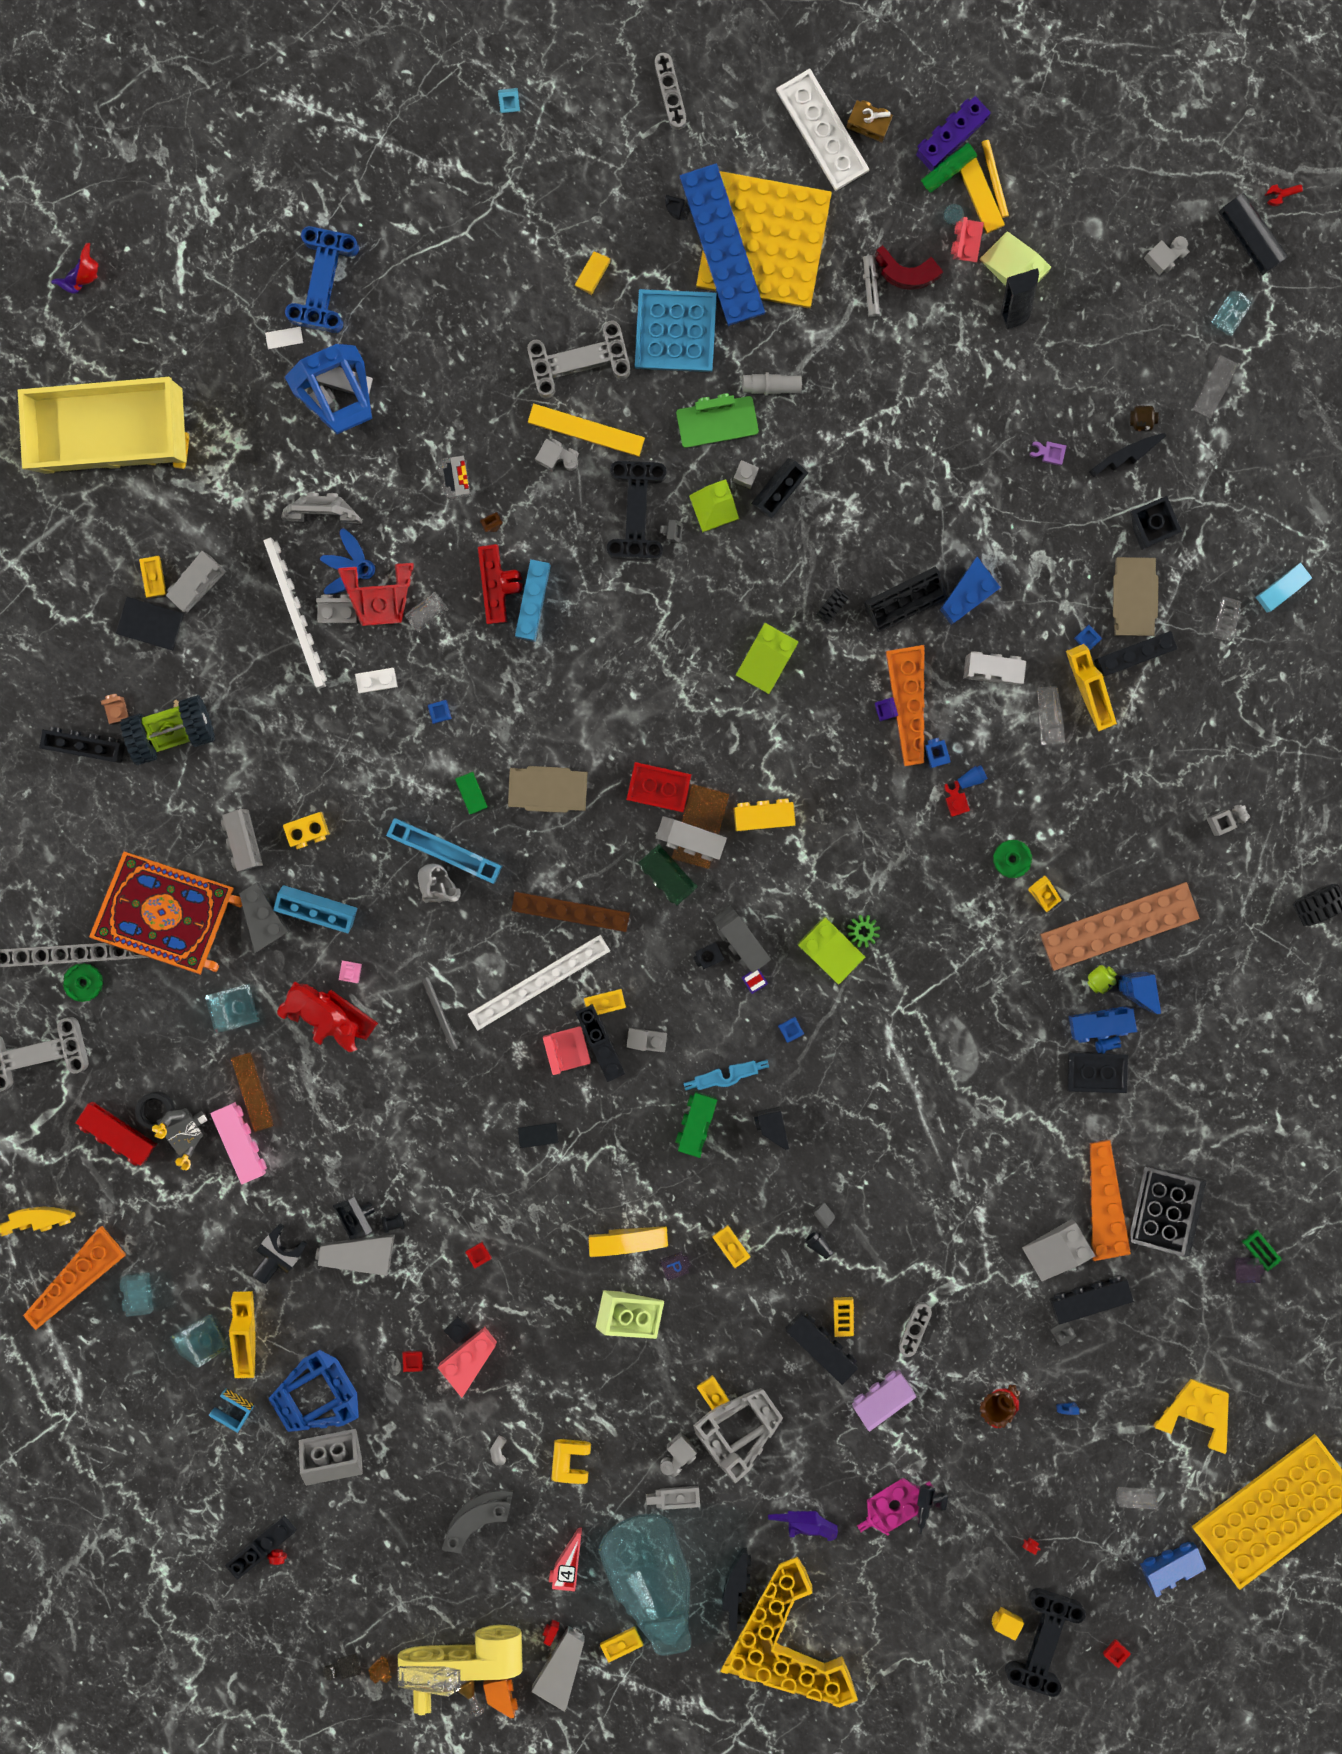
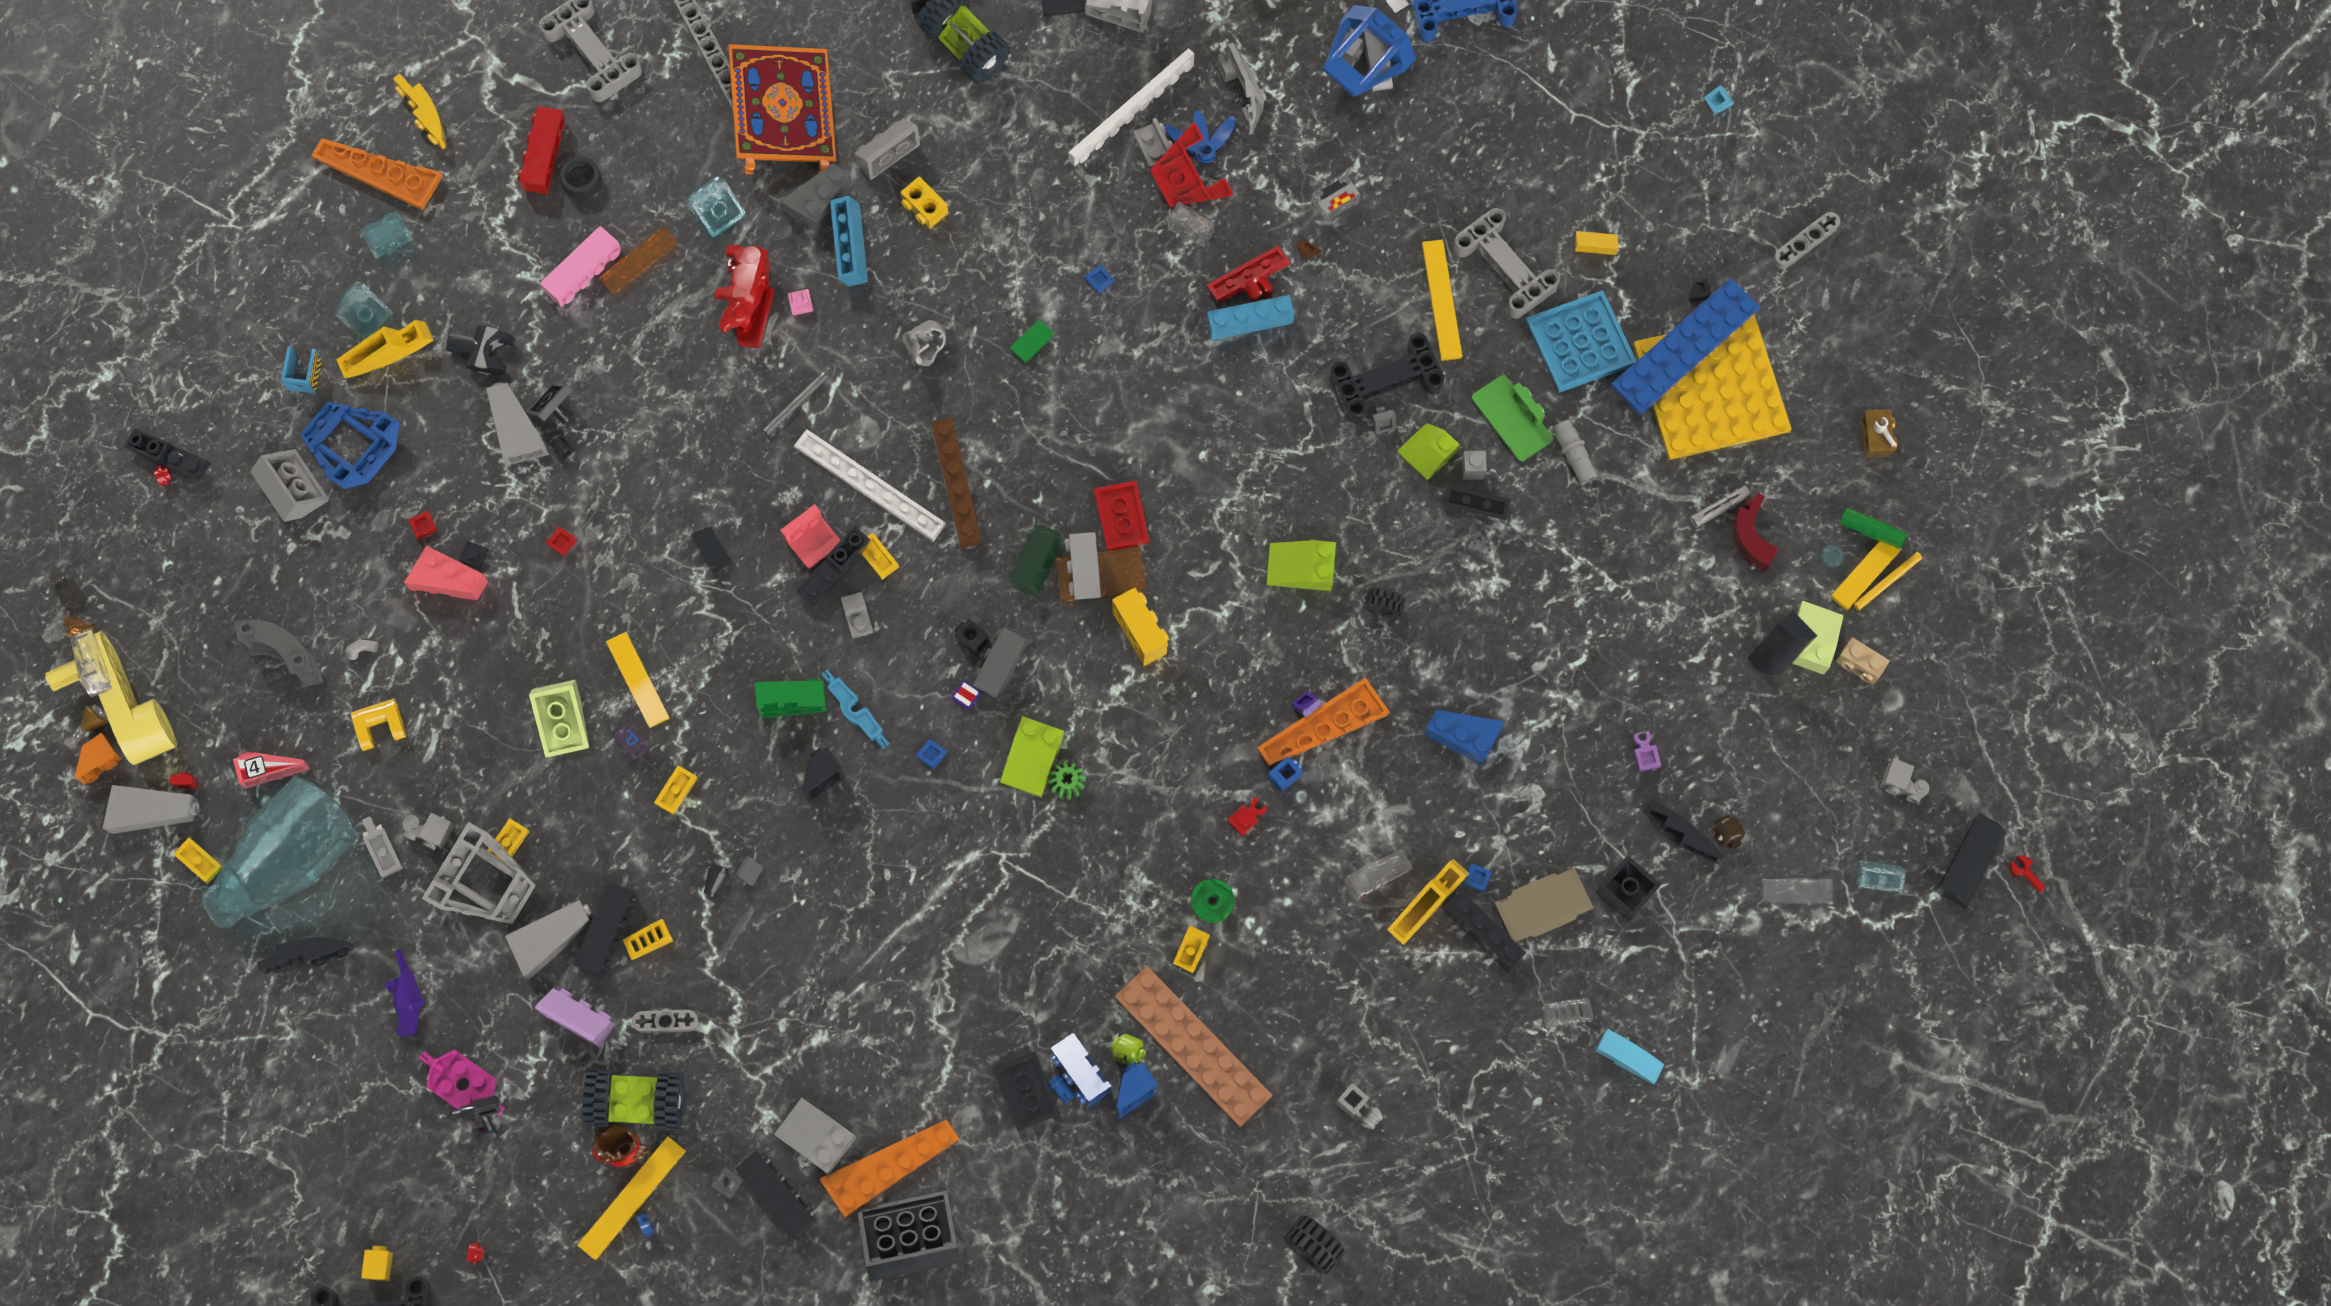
camera: 60 degrees right, 15 degrees down
(73, 986) = (678, 54): green plate -> none
(182, 1132) = (570, 207): dark grey torso -> none
(376, 680) = (1102, 208): white plate -> none
(444, 850) = (962, 337): dark azure arch -> none
(547, 789) = (1069, 410): dark tan piece -> none
(552, 453) = (1401, 276): light grey brick -> none
(763, 1660) = (237, 1009): yellow wedge -> none
(807, 1397) = (547, 937): none -> light grey slope
(822, 129) = (1846, 395): white plate -> none
(906, 599) = (1427, 673): black piece -> none
(953, 133) = (1915, 520): dark purple brick -> none
(968, 240) = (1813, 575): coral bracket -> none
(972, 777) = (1278, 823): blue cone -> none
(972, 1381) = (633, 1099): none -> plate
(994, 668) = (1399, 792): wedge -> none
(1041, 1410) = (631, 1198): none -> yellow tile
(1054, 236) = (1862, 661): none -> tan brick

